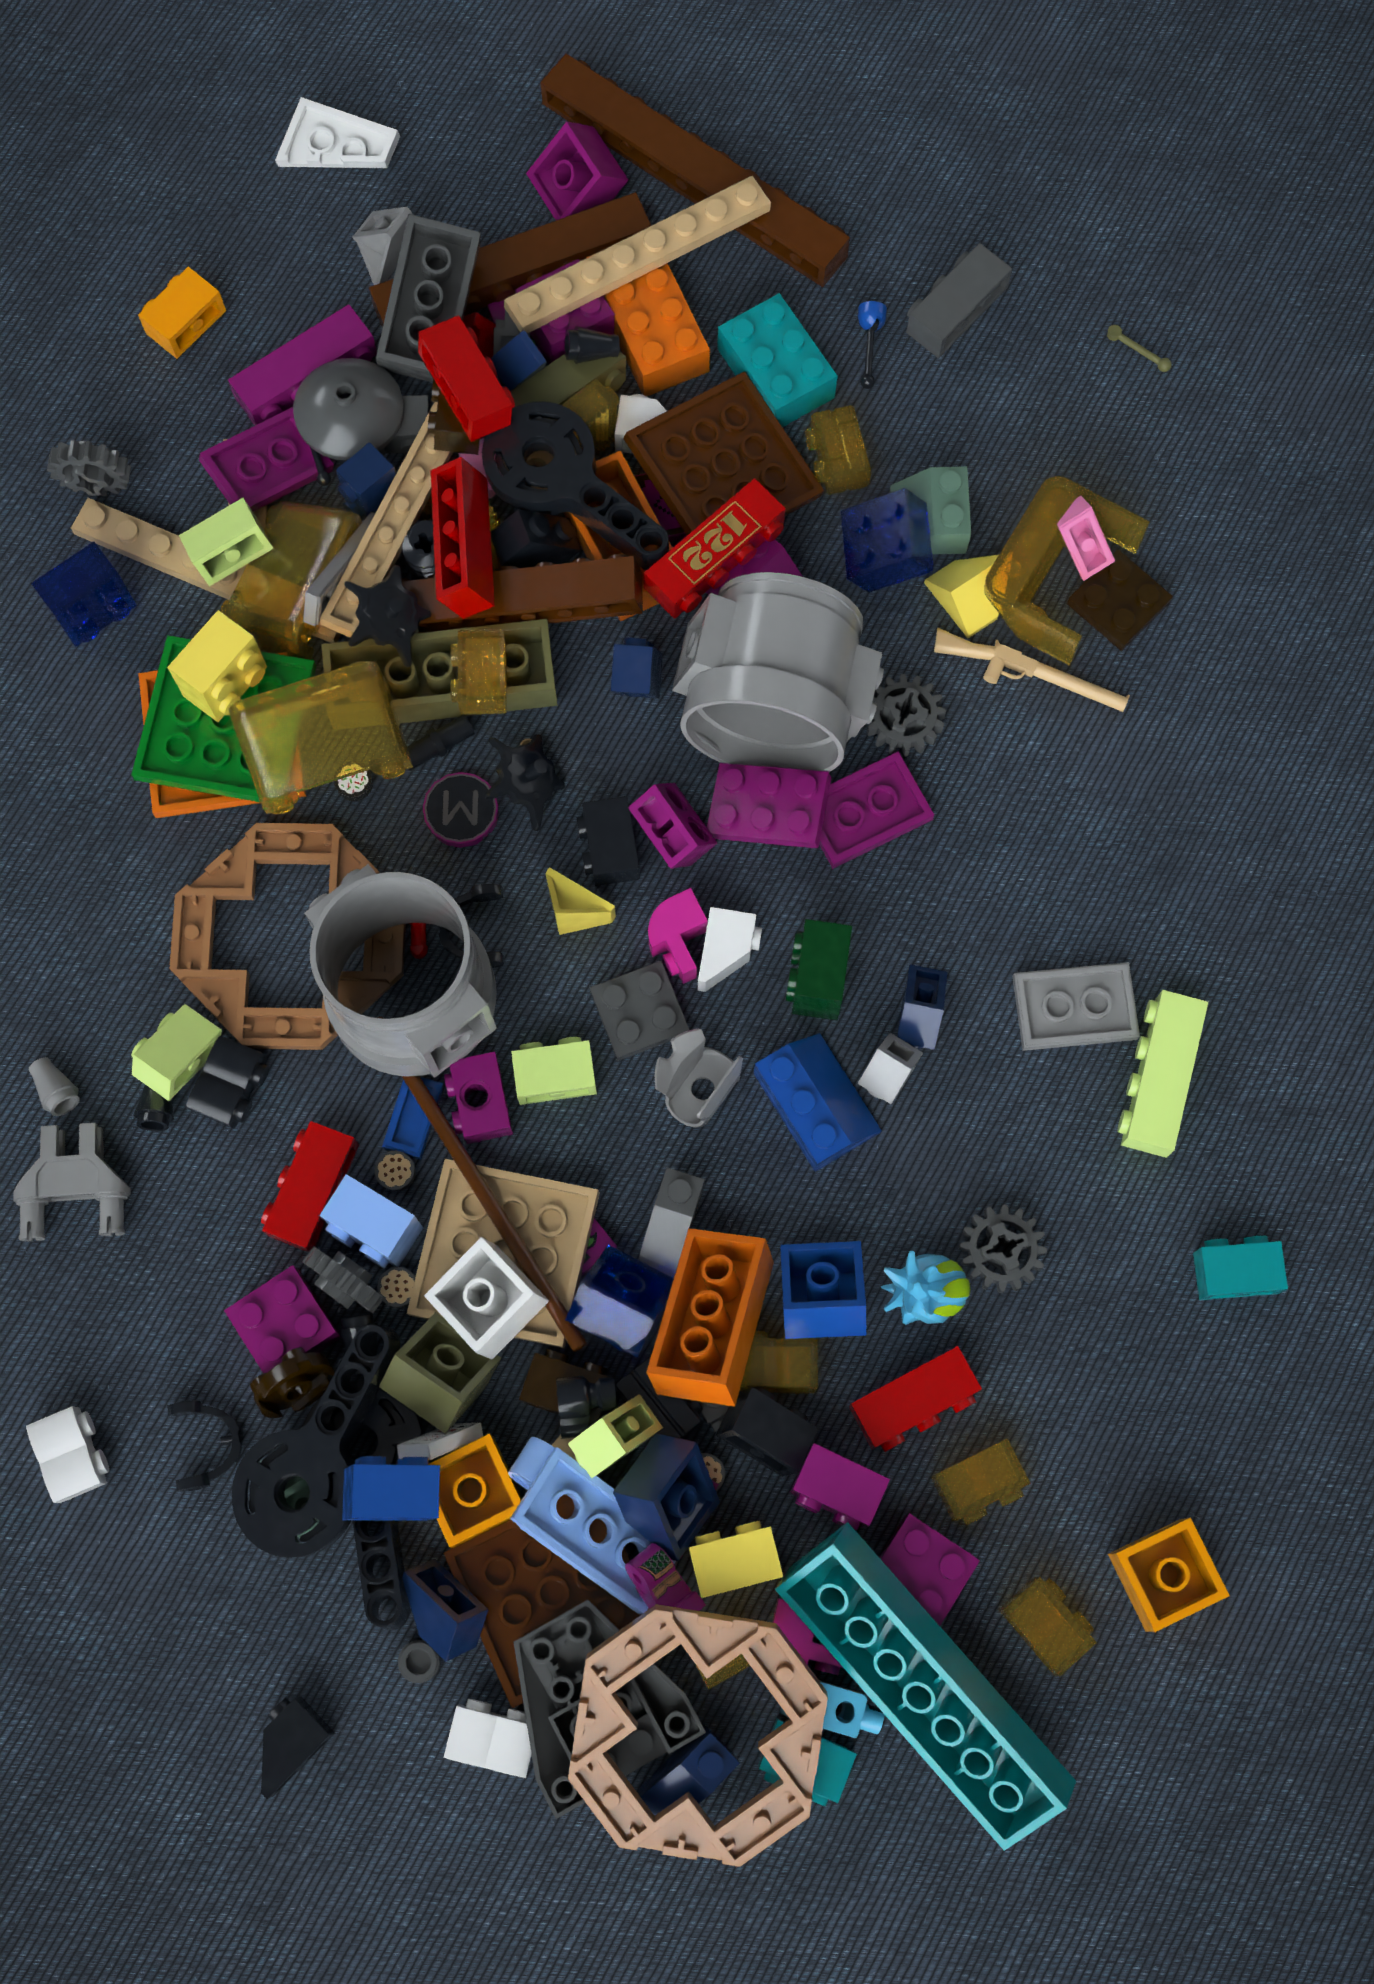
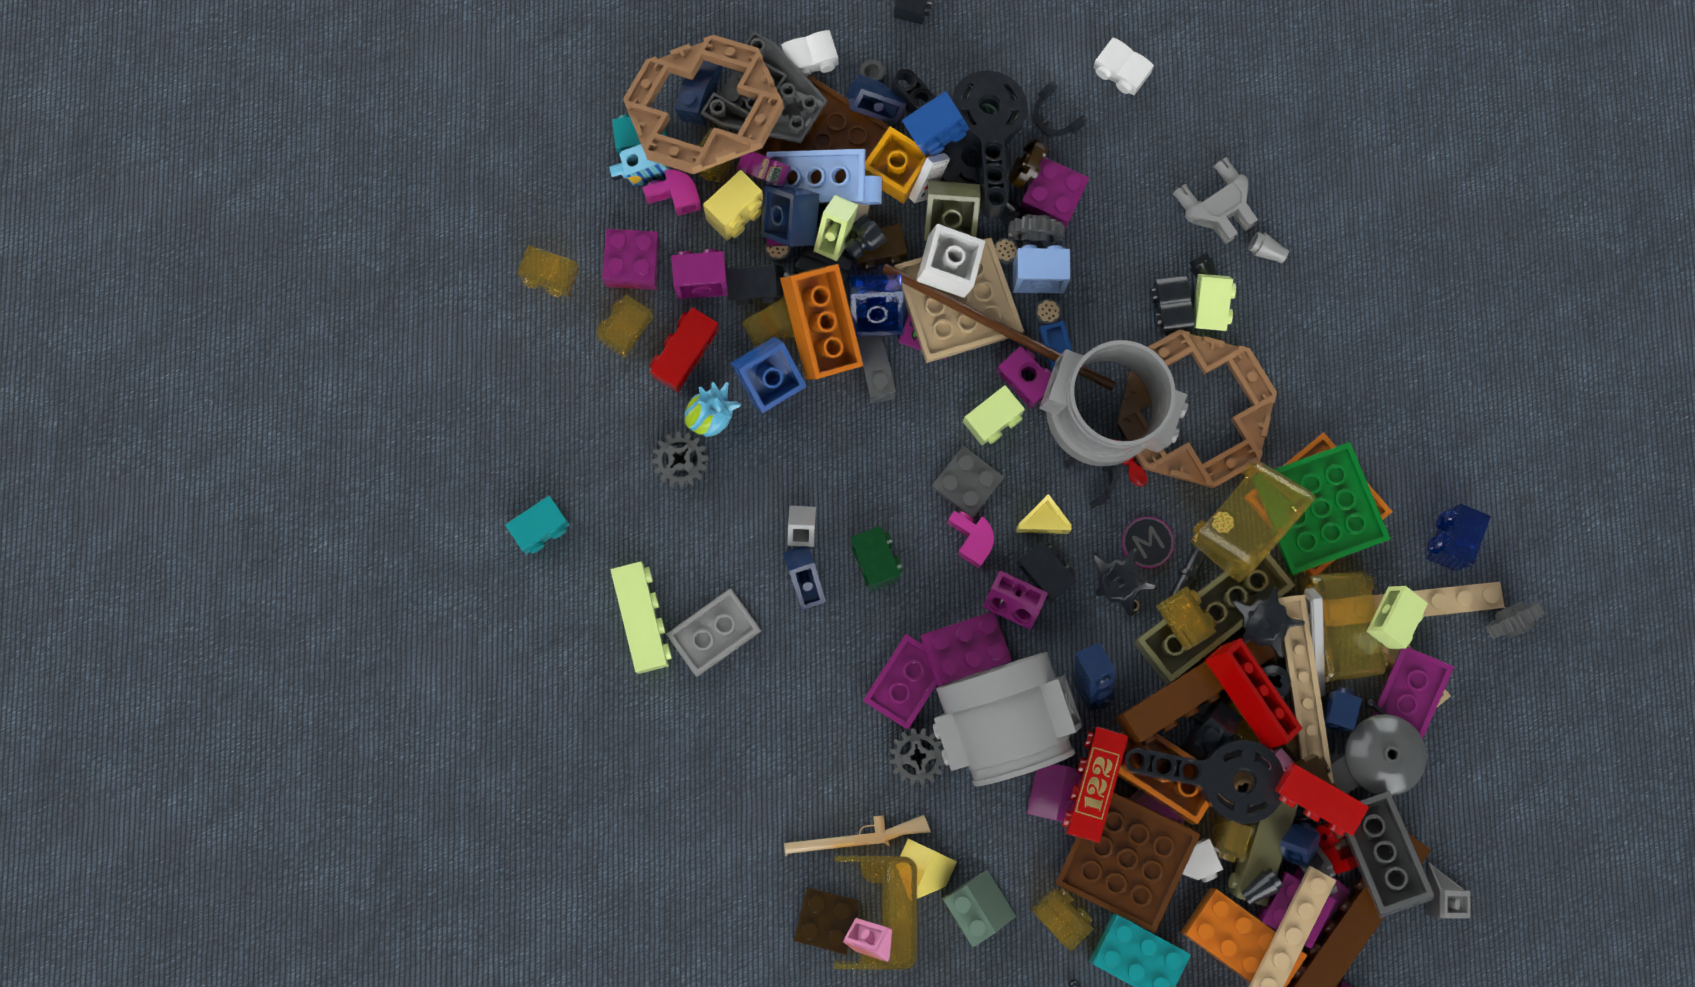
camera: 145 degrees right, 5 degrees up
(182, 312) = (1537, 764): light orange brick -> none
(218, 666) = (1342, 526): light yellow brick -> none
(273, 381) = (1445, 753): magenta brick -> none
(307, 1185) = (1089, 275): red brick -> none
(335, 139) = (1530, 954): white wing -> none
(686, 1065) = (920, 450): light grey piece -> none
(727, 945) = (940, 548): white slope -> none
(816, 1100) = (833, 486): blue slope -> none
(887, 540) = (994, 865): clear blue brick -> none
(927, 1687) = (598, 197): teal brick -> none
(1168, 1575) = (495, 331): light orange brick -> none

